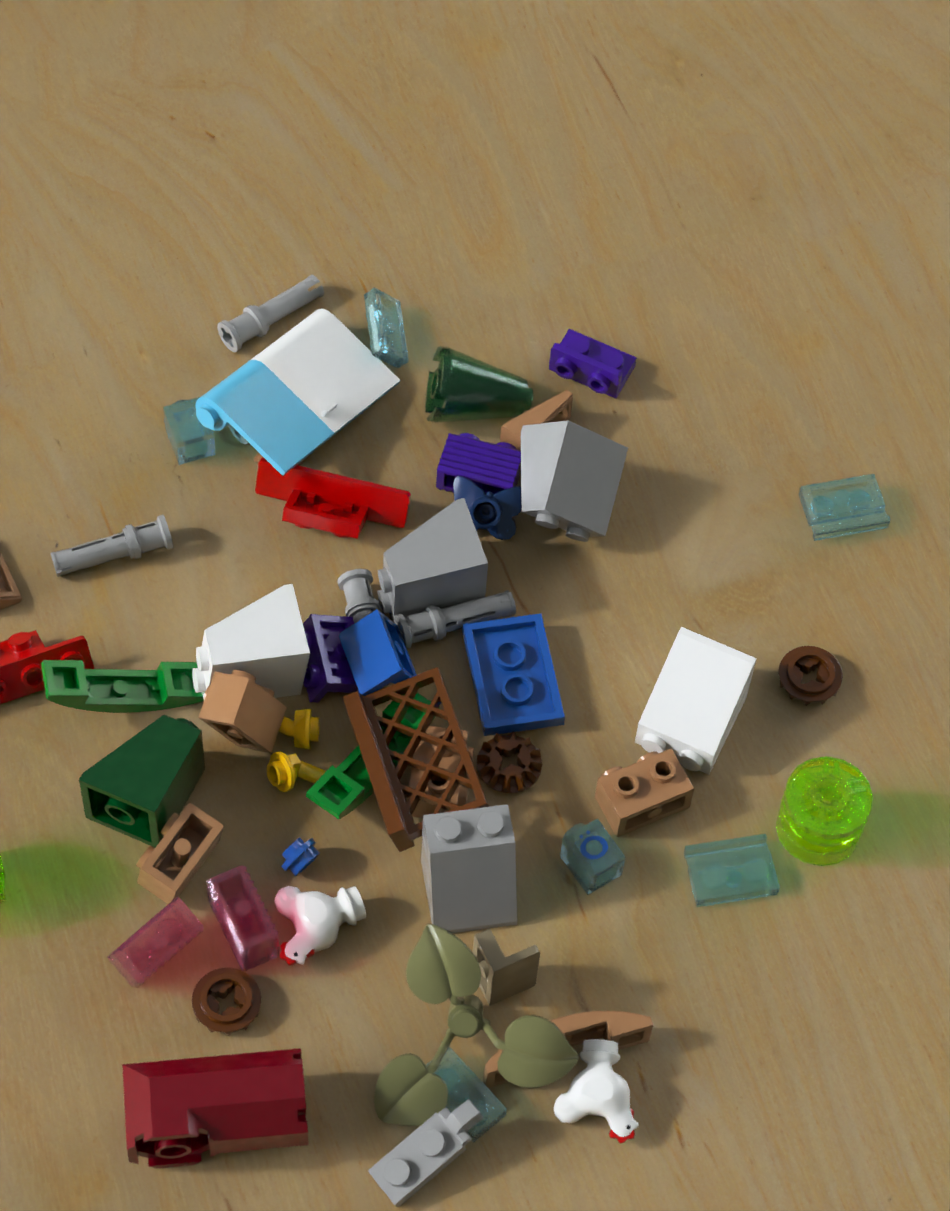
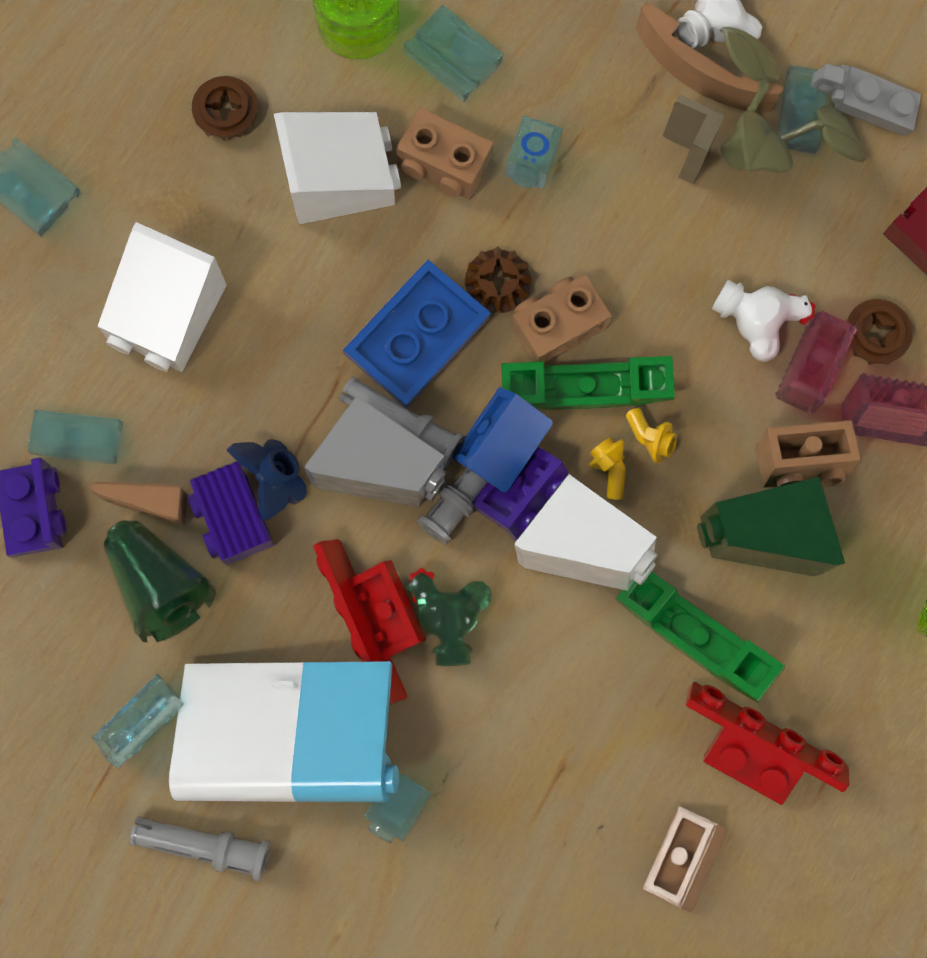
camera: 130 degrees left, 20 degrees up
(130, 541) = (553, 756): light grey pin -> none
(242, 710) = (656, 500): medium nougat brick -> none
(285, 545) = (448, 615): none -> clear green animal
(299, 855) = (720, 370): blue plate -> none
(379, 759) = (606, 352): reddish brown fence -> none
(470, 868) = (627, 226): light grey slope -> none
(570, 477) = (192, 416): light grey slope -> none
(626, 416) = (75, 436): none -> clear light blue plate
(679, 526) = (160, 299): none -> white slope

